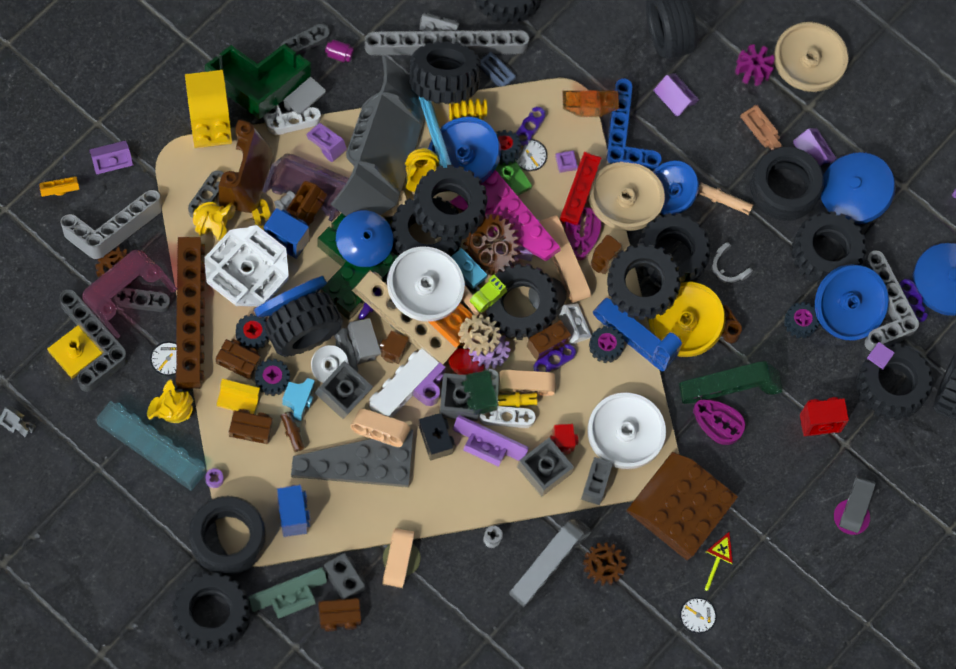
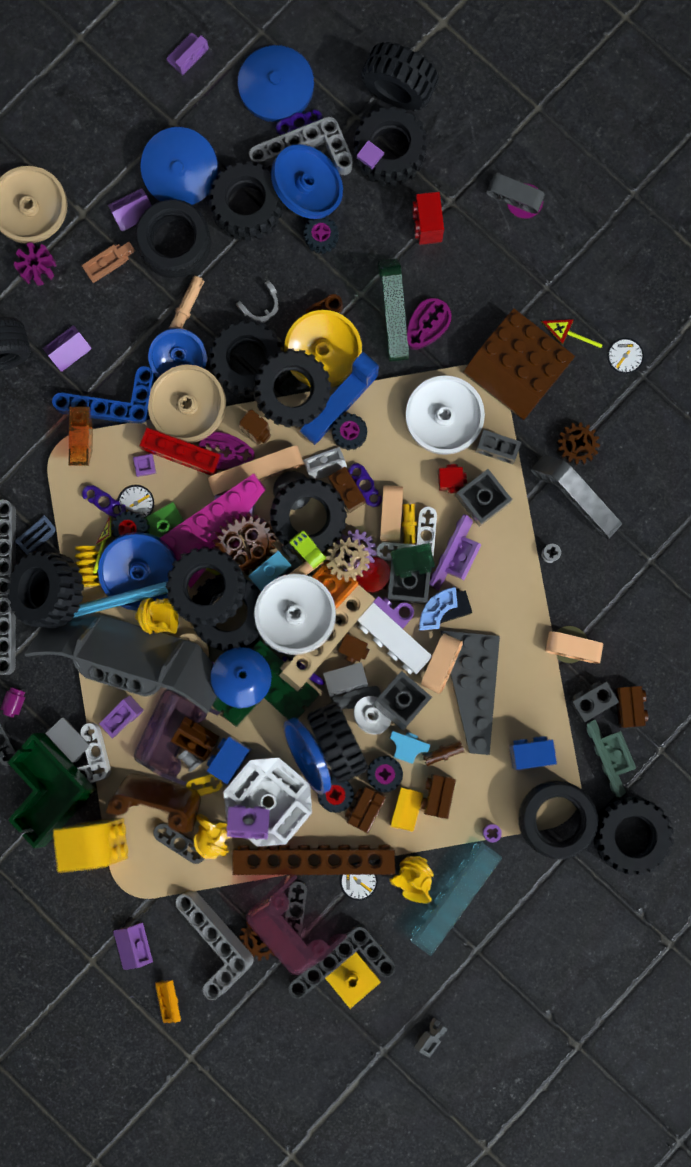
camera: 75 degrees left, 15 degrees up
(221, 253) = (256, 830): none -> medium lavender brick
(435, 420) = (436, 608): none -> light blue tile
(489, 122) = (106, 533): none -> neon yellow piece

